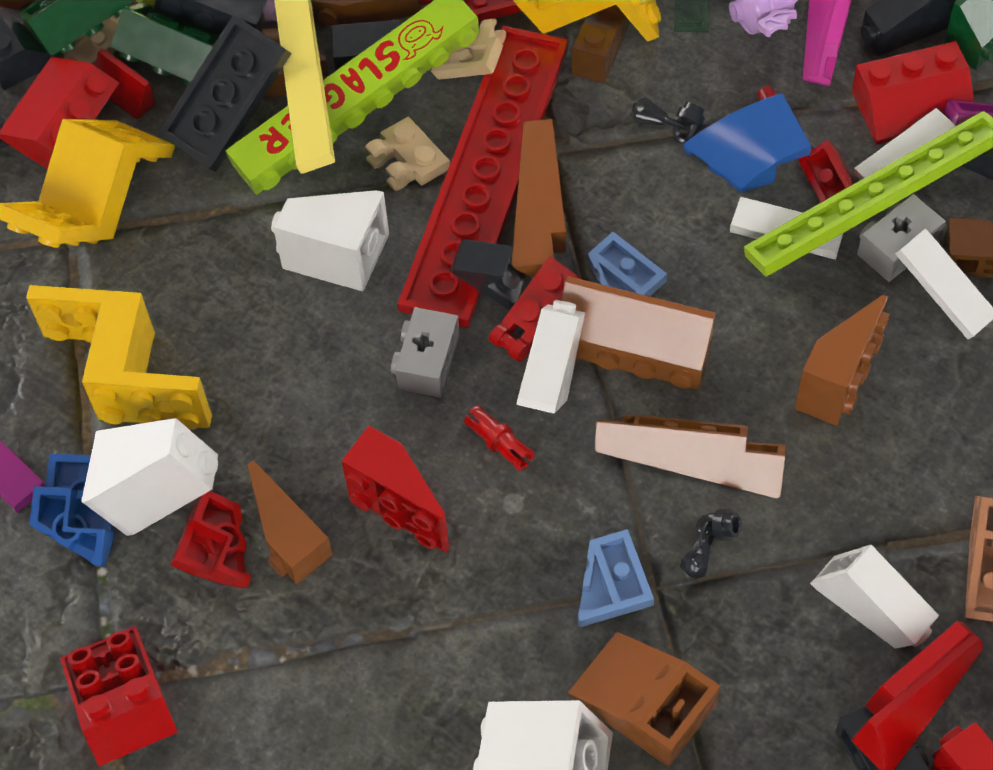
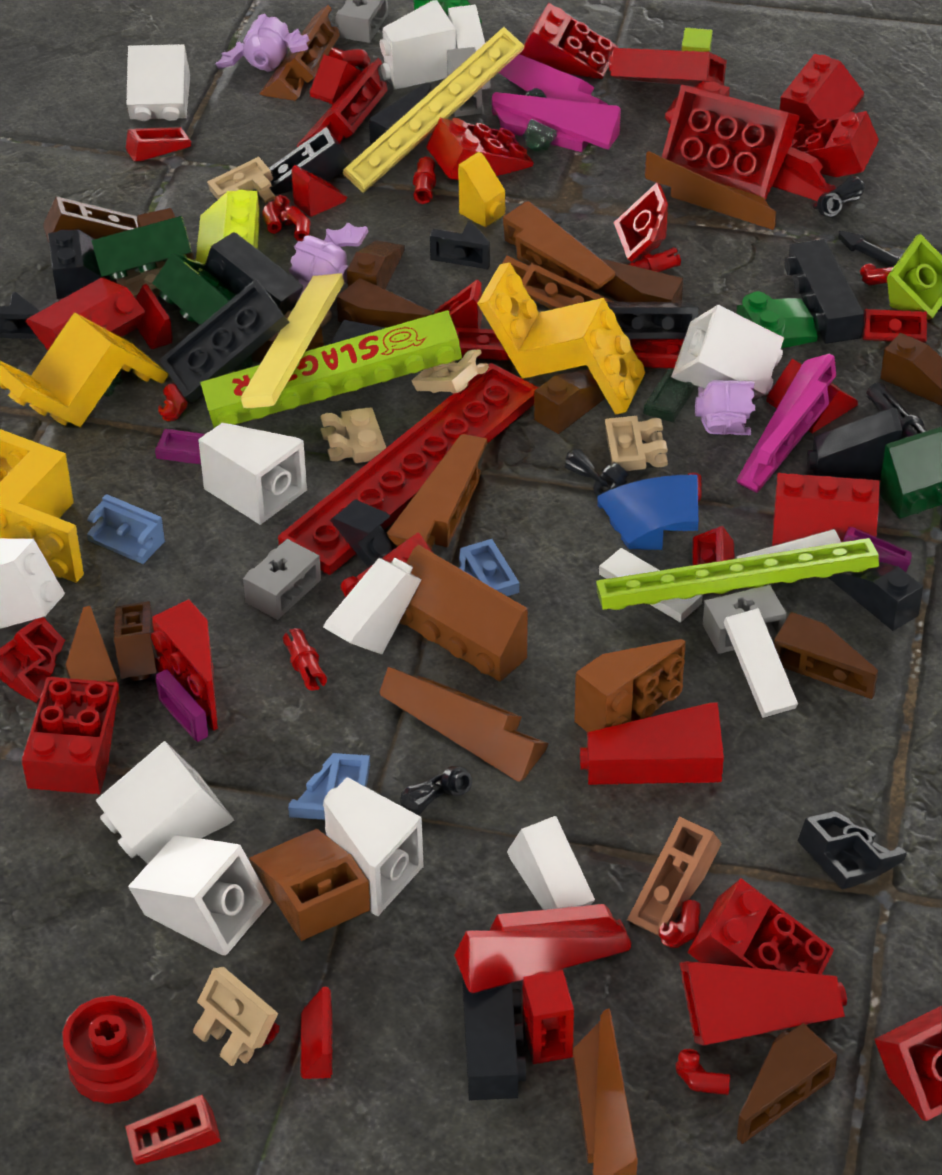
camera: 20 degrees right, 15 degrees down
(202, 178) = (175, 403): none -> red arm
(232, 349) = (126, 529): none -> medium blue hinge
(242, 225) = (179, 446): none -> magenta tile
(314, 619) = (71, 736): none -> red slope
(315, 478) = (133, 641): none -> reddish brown slope
(406, 540) = (181, 705): none -> magenta tile
(452, 671) = (158, 801): none -> white slope
(680, 71) = (626, 443): none -> tan plate
(690, 626) = (378, 836): none -> white slope
(901, 415) = (657, 749): none -> red slope

